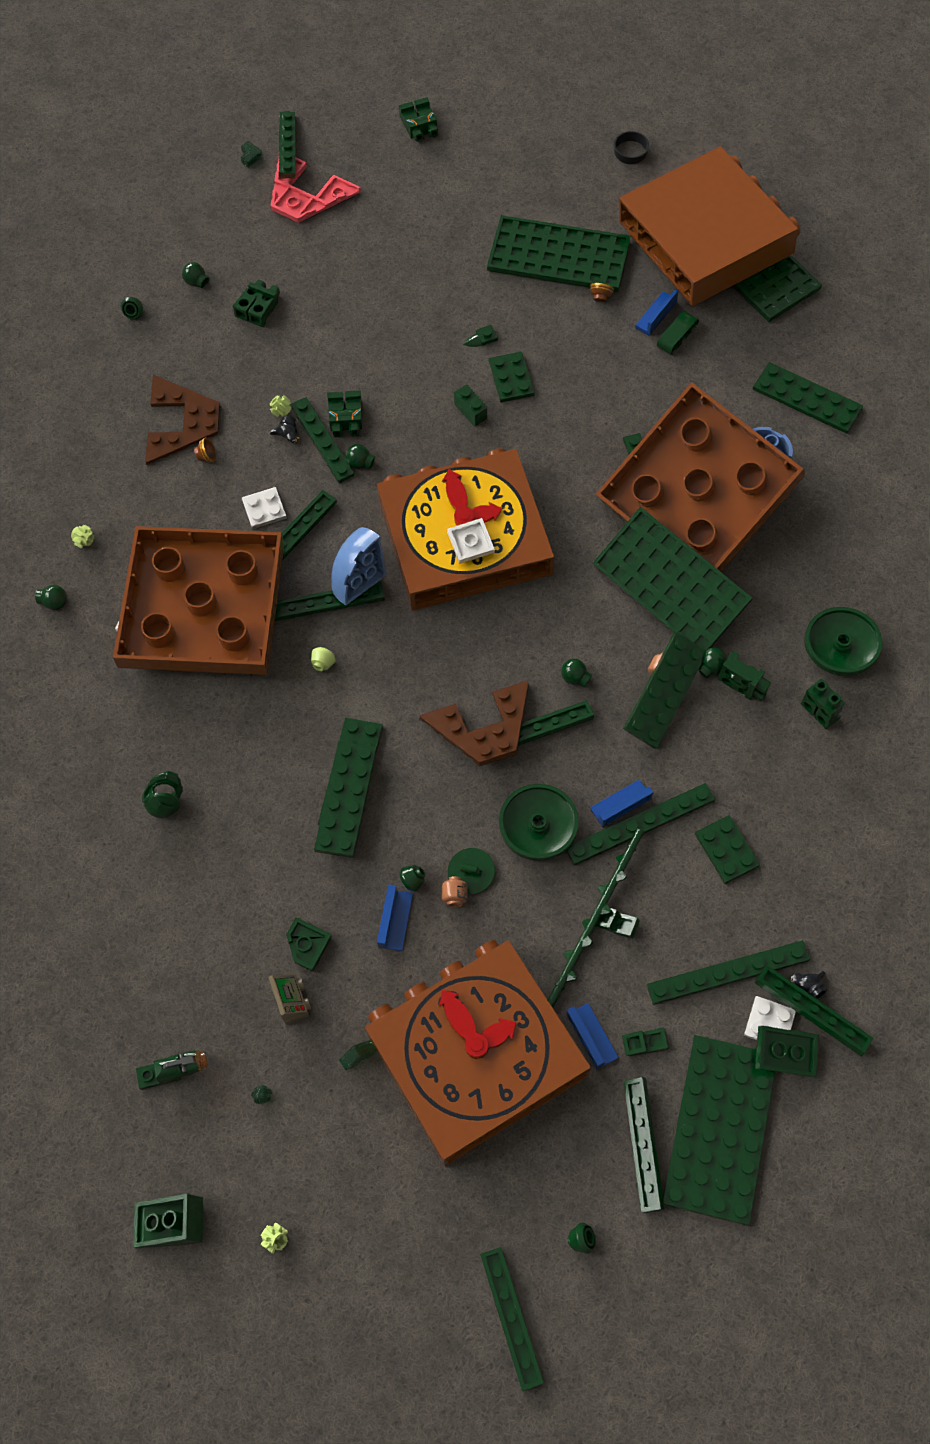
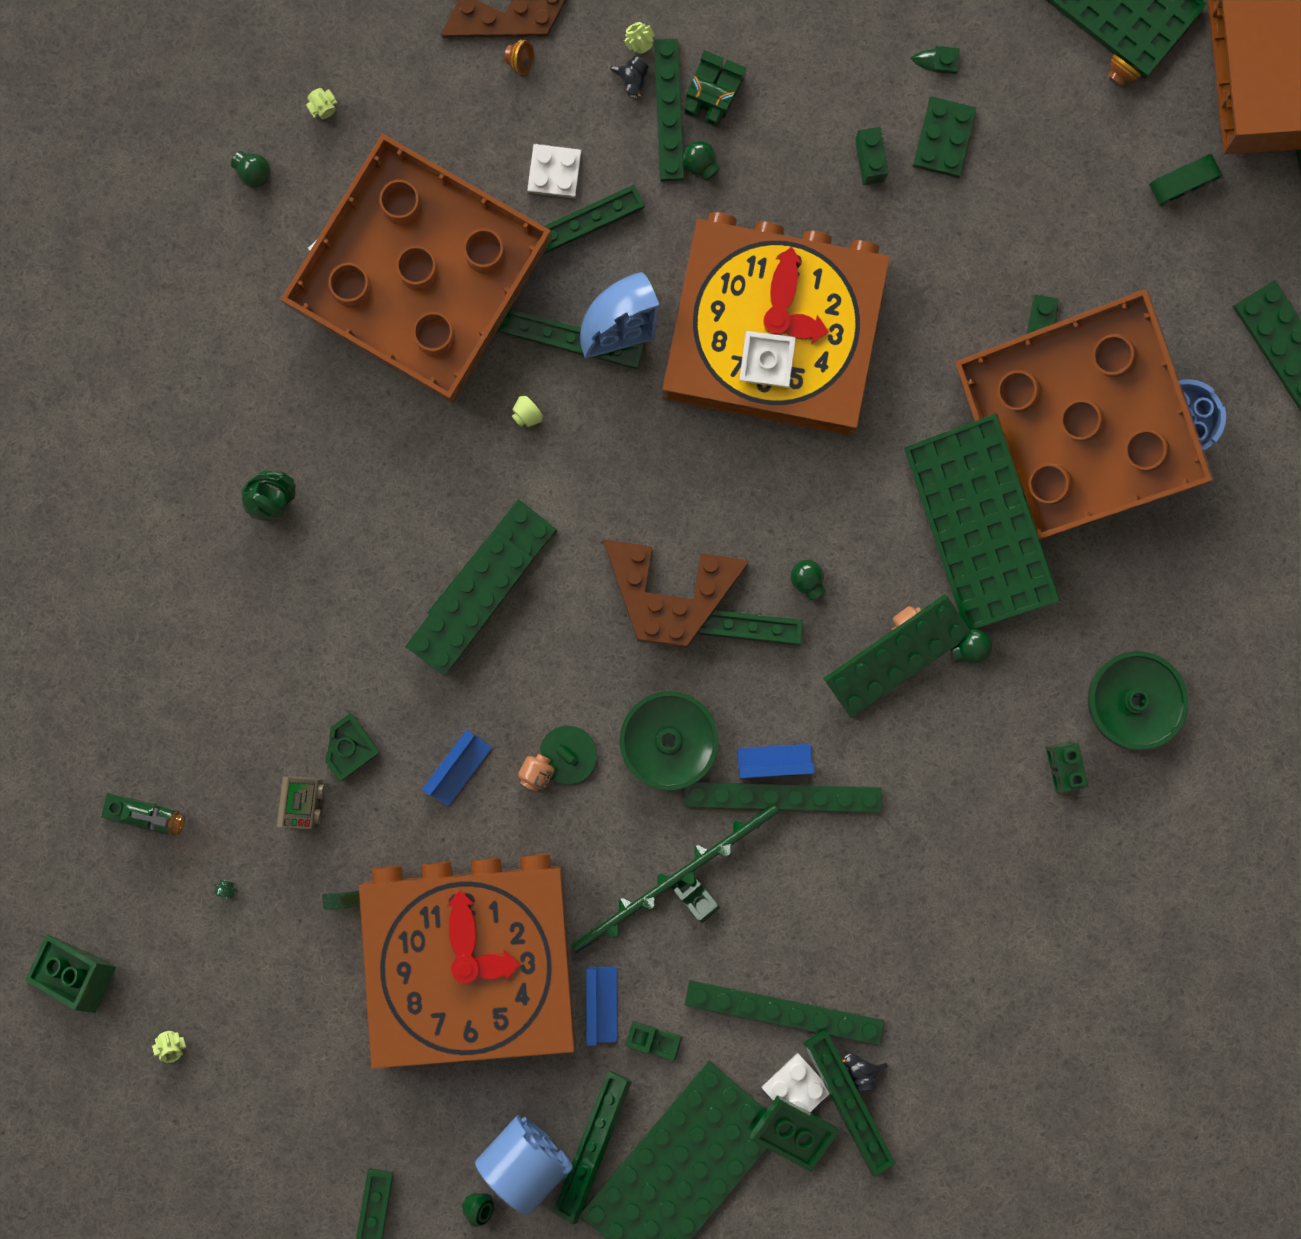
camera: 25 degrees right, 20 degrees up
(412, 877) = (497, 732): dark green cone -> none
(599, 1177) = (523, 1165): none -> medium blue brick
(657, 312) = (1176, 135): blue panel -> none
(727, 849) = (861, 875): dark green plate -> none
(744, 678) = (995, 689): dark green hips -> none

